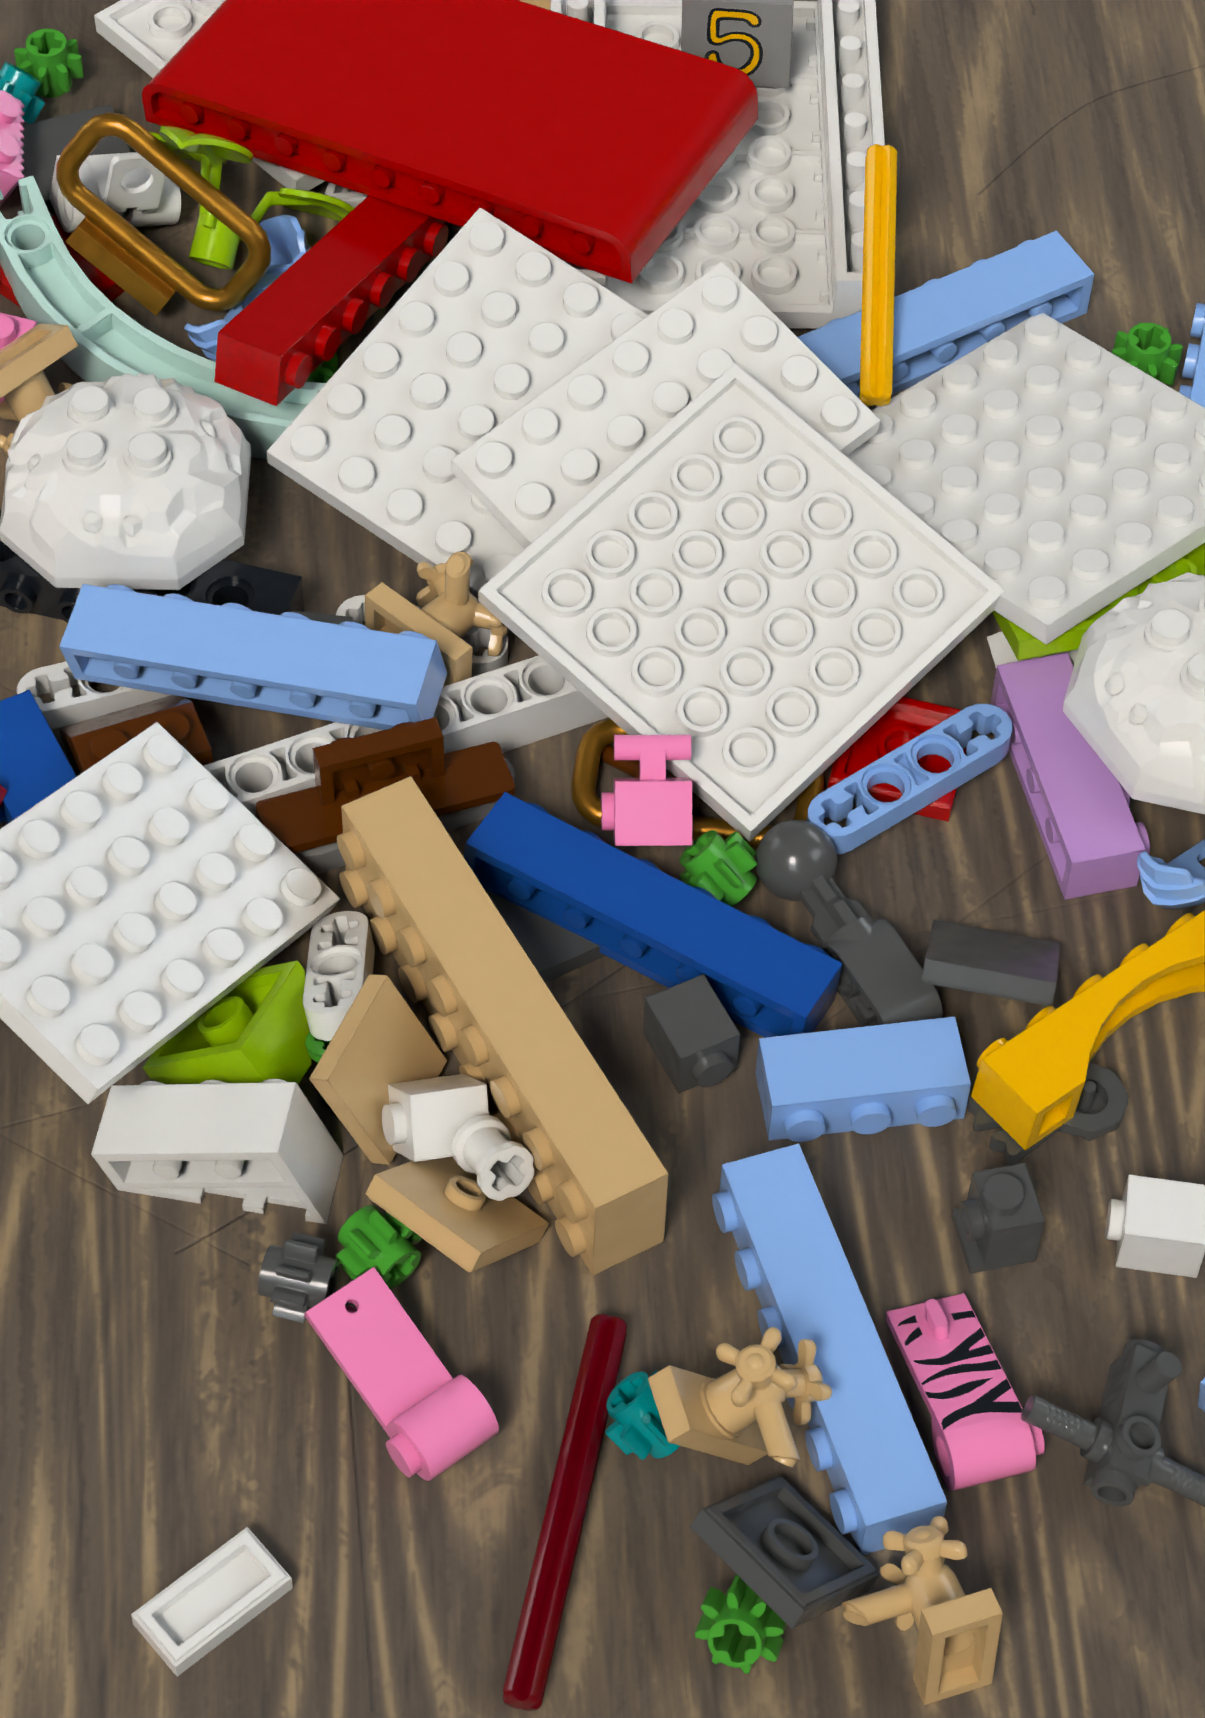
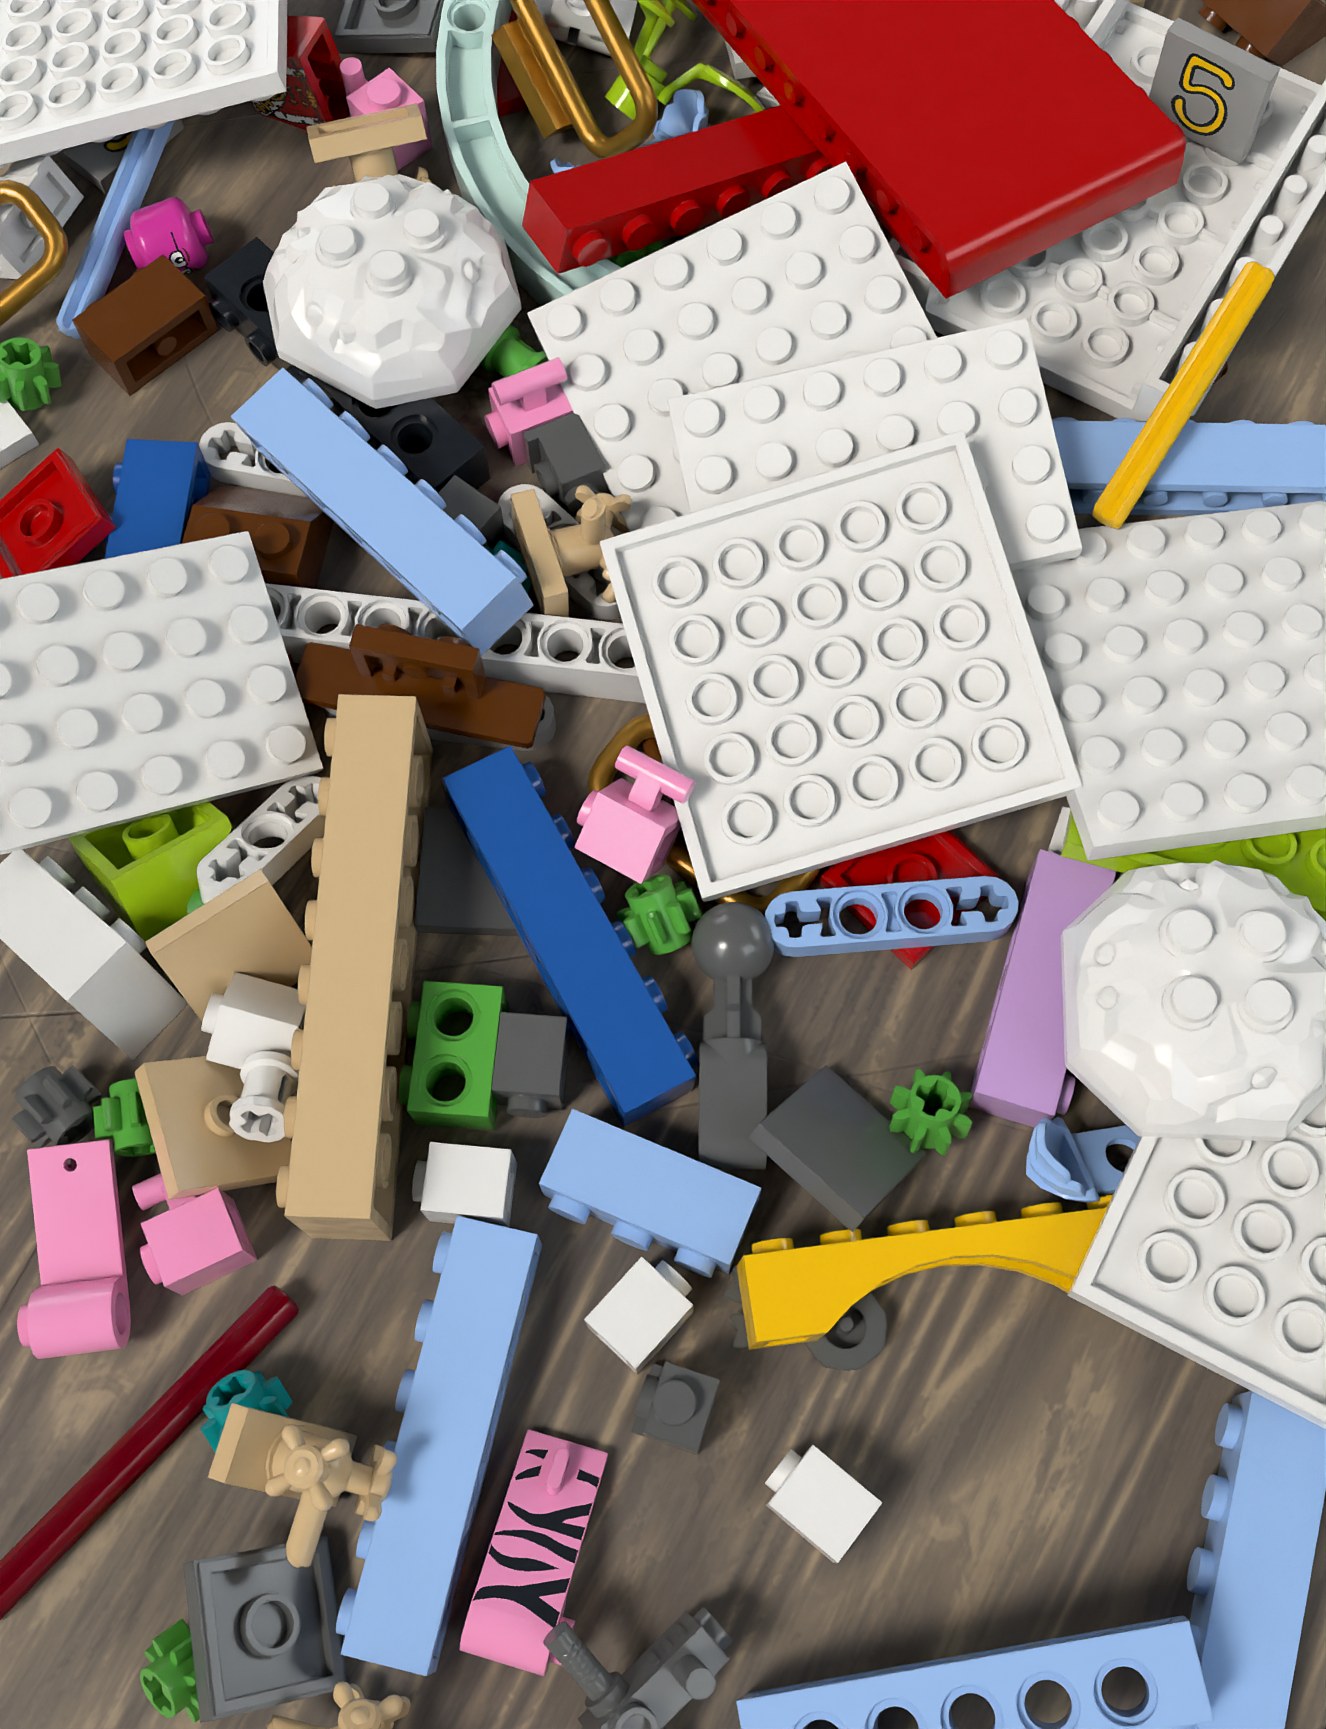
camera: 35 degrees right, 15 degrees up
(274, 506) = (511, 354): none -> bright green bush
(318, 535) = (525, 403): none -> bright pink brick
(372, 555) = (564, 460): none -> dark grey brick
(496, 1314) = (194, 1239): none -> bright pink brick
(636, 1057) = (463, 1055): none -> bright green brick
(697, 1145) = (465, 1183): none -> white brick
(920, 1171) = (642, 1312): none -> white brick
(1044, 904) = (936, 1094): none -> bright green gear

